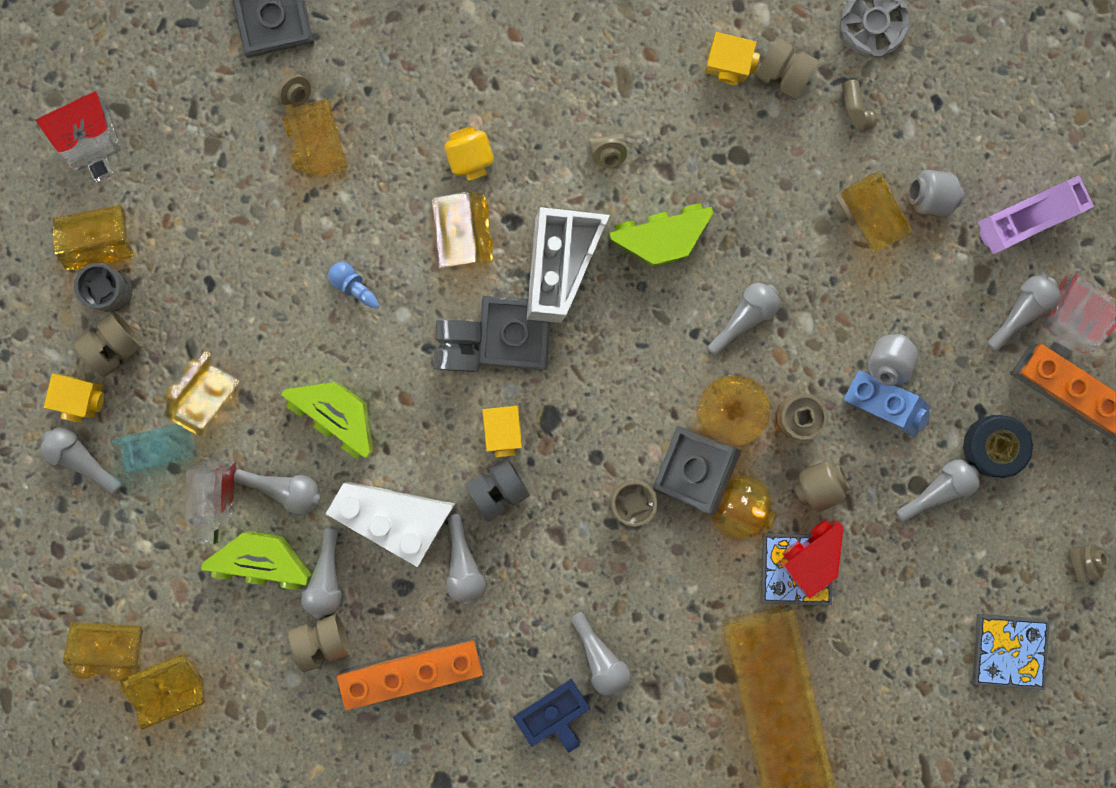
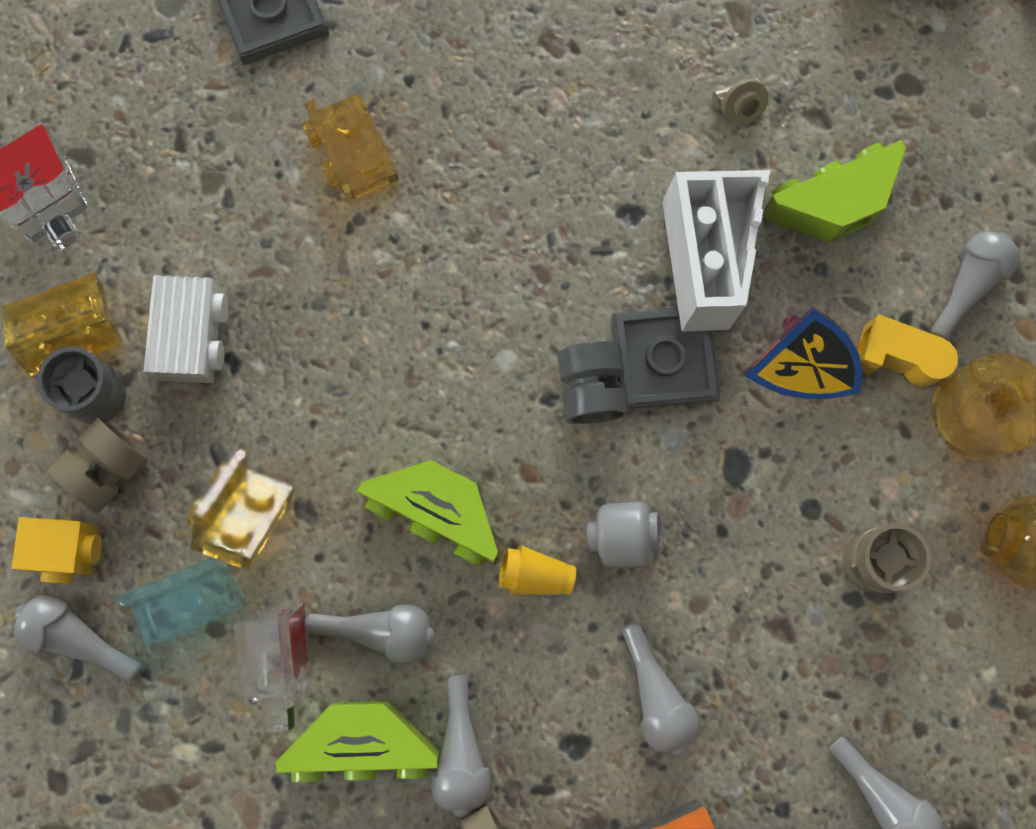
camera: 10 degrees left, 10 degrees down
(179, 257) = (185, 329): none -> white brick
(292, 89) = (308, 85): dark tan plate -> none
(345, 278) = (417, 321): medium blue bar -> none
(391, 518) = (547, 645): white wedge -> none
(394, 469) = (534, 573): none -> yellow cone
(460, 454) = (626, 534): none -> light grey head
(462, 229) = (568, 229): clear yellow bracket -> none
(469, 152) = (559, 129): yellow head -> none
(502, 430) = (680, 488): yellow brick -> none
(509, 484) = (699, 559): dark grey wheel -> none
(611, 355) = (810, 360): none -> shield
(694, 365) = (906, 350): none -> yellow leg
(696, 470) = (966, 498): dark grey tile -> none

